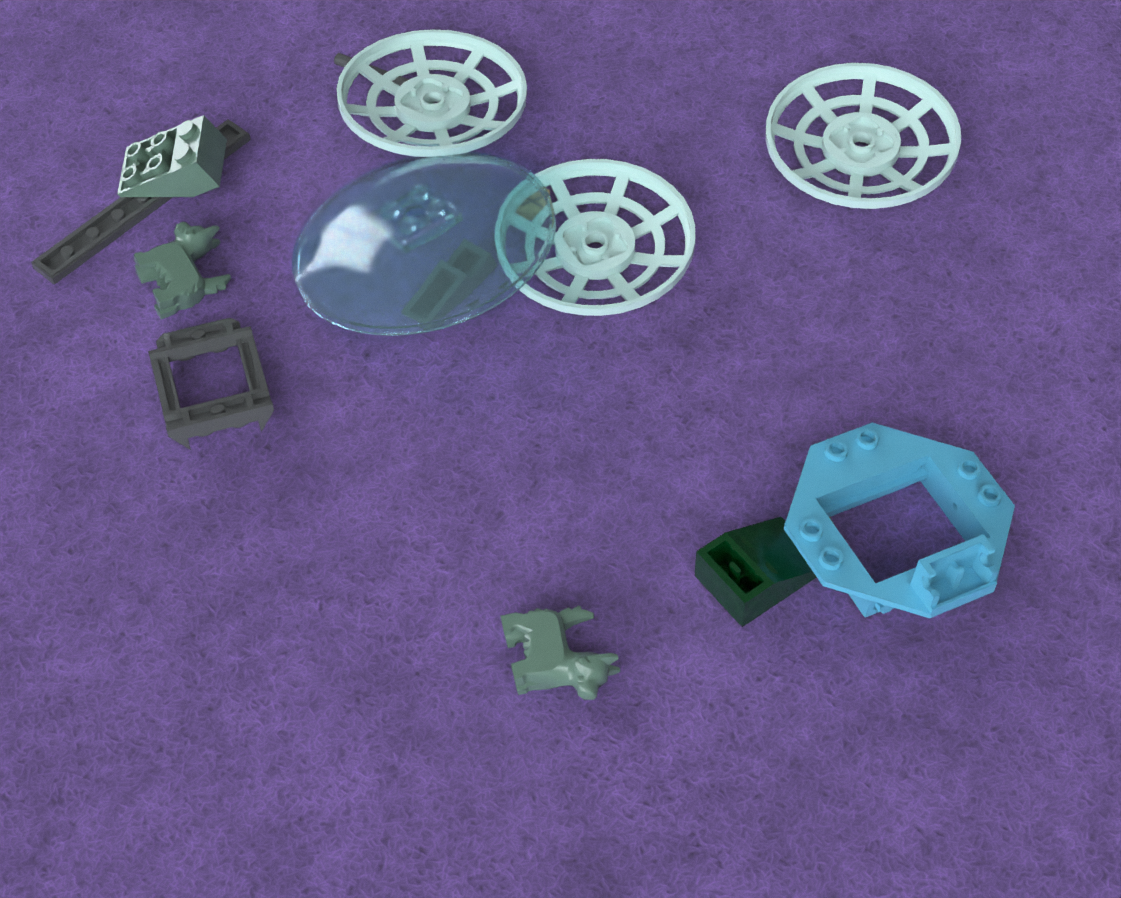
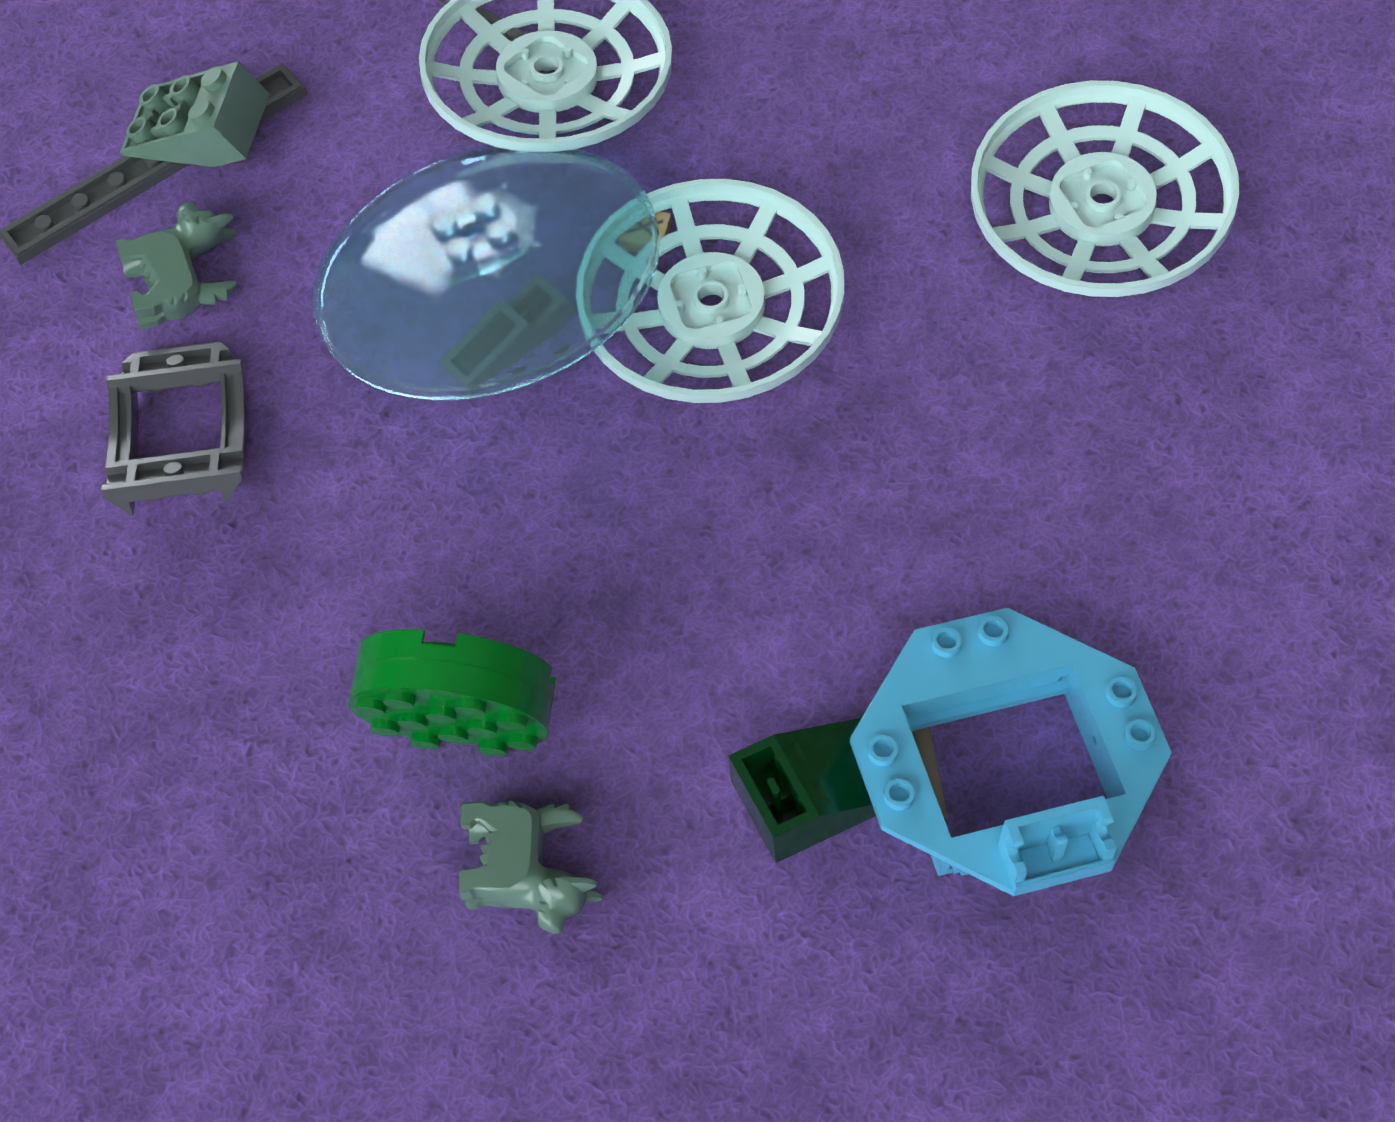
camera: 15 degrees right, 5 degrees up
(480, 532) = (452, 691): none -> green piece

